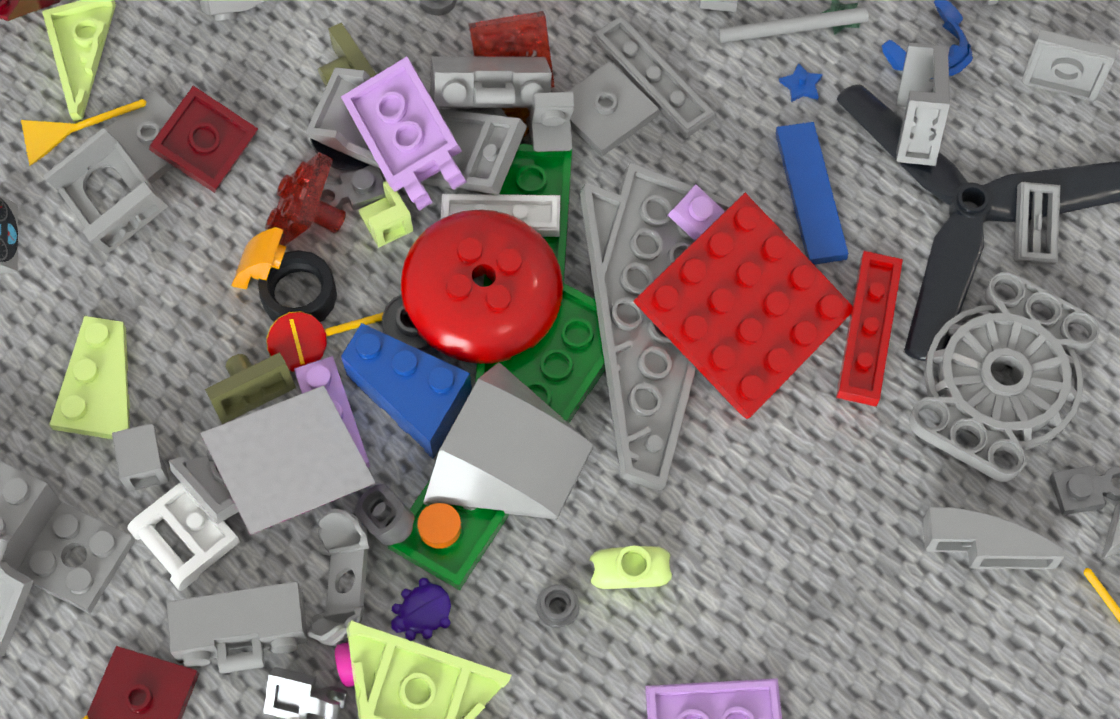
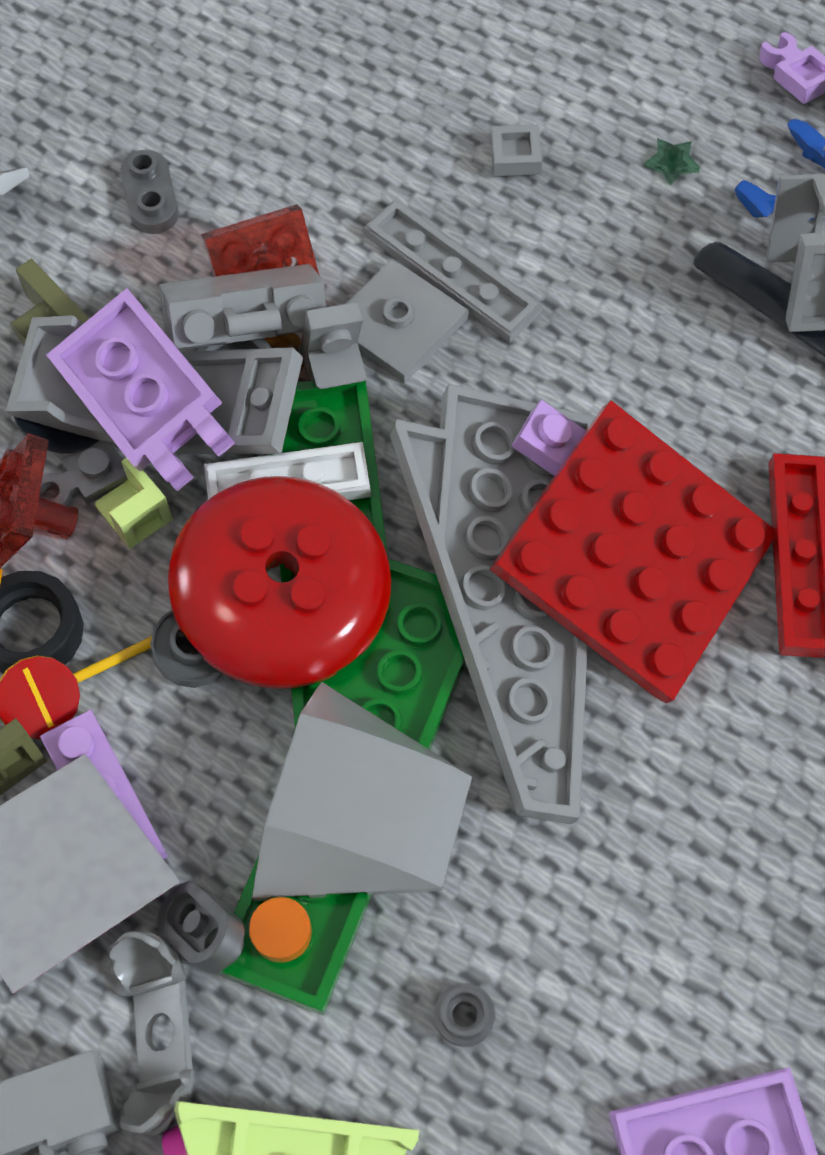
camera: 10 degrees left, 0 degrees up
(408, 385) = (202, 733): blue wedge -> none
(422, 610) = (275, 1055): dark purple piece -> none
(631, 567) = (556, 941): yellowish green piece -> none
(792, 25) = (617, 179): light grey bar -> none
(801, 83) = (642, 252): blue piece -> none
(811, 193) = (686, 389): blue tile -> none

